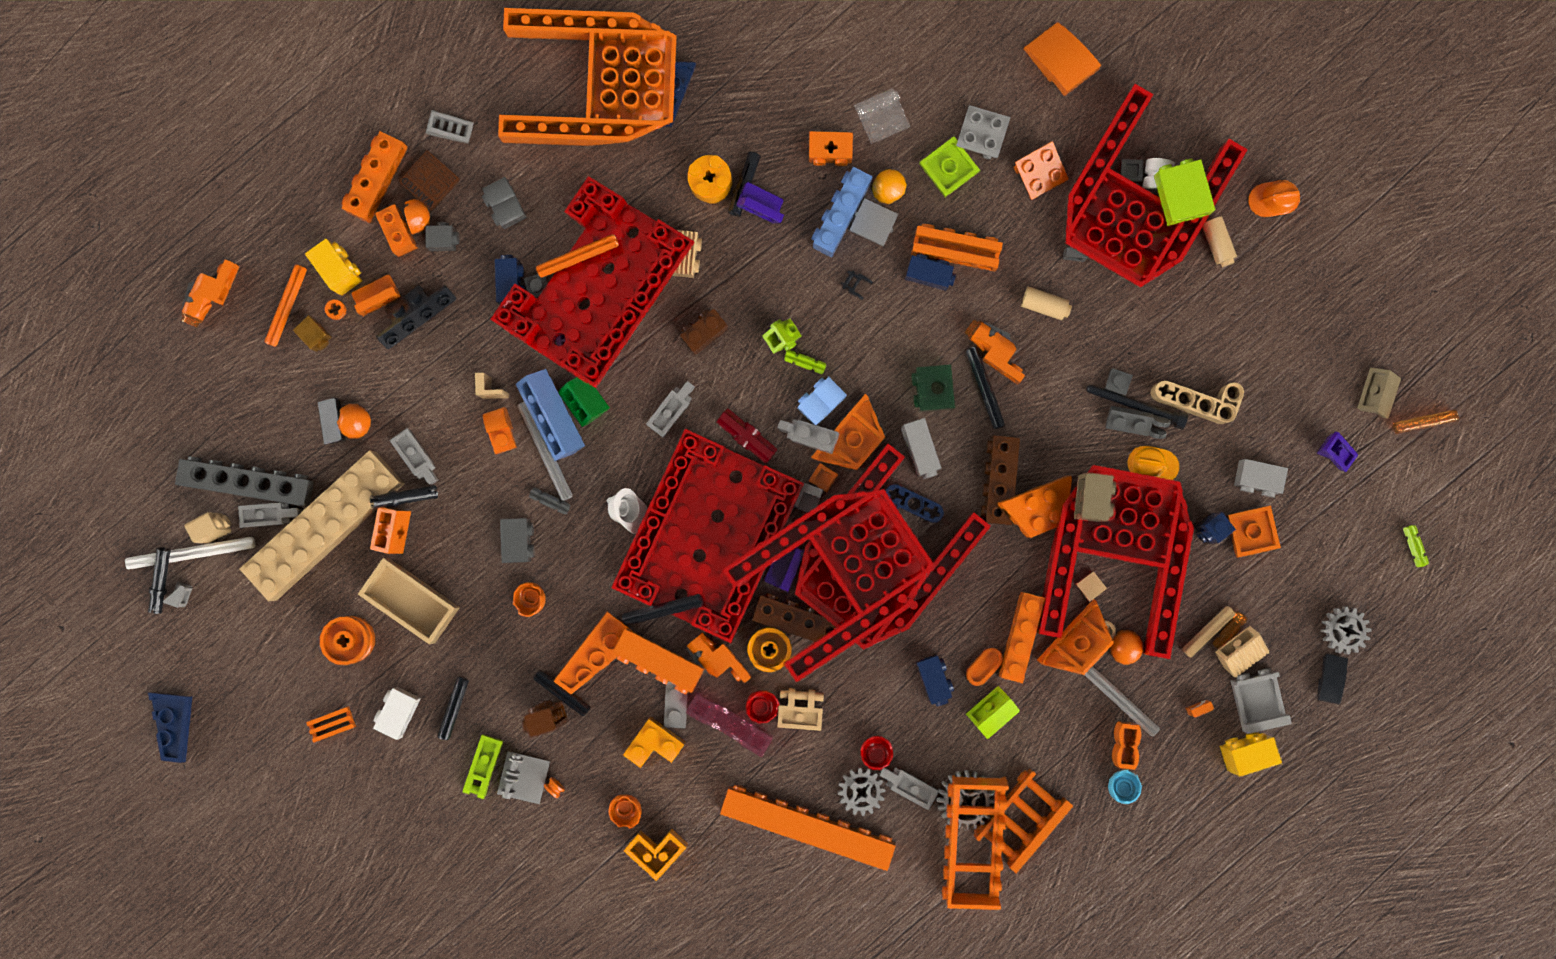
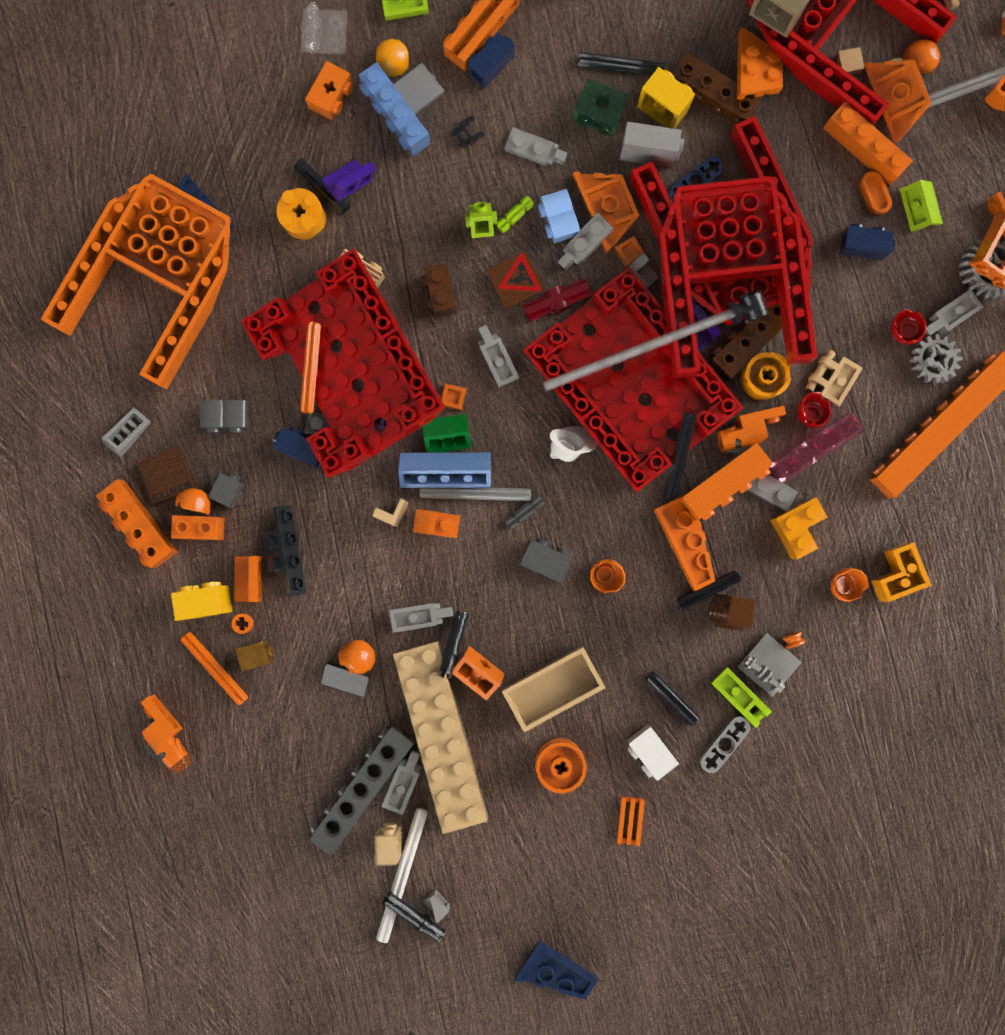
camera: 65 degrees left, 0 degrees up
(421, 763) = (726, 753): none -> light grey beam
(619, 389) = (453, 396): none -> orange tile
(746, 391) = (515, 280): none -> reddish brown piece
(811, 602) = (751, 307): none -> flat silver piece
(872, 348) = (534, 148): none -> light grey hinge
(968, 441) = (665, 98): none -> yellow brick
(998, 348) = (593, 34): orange plate -> none

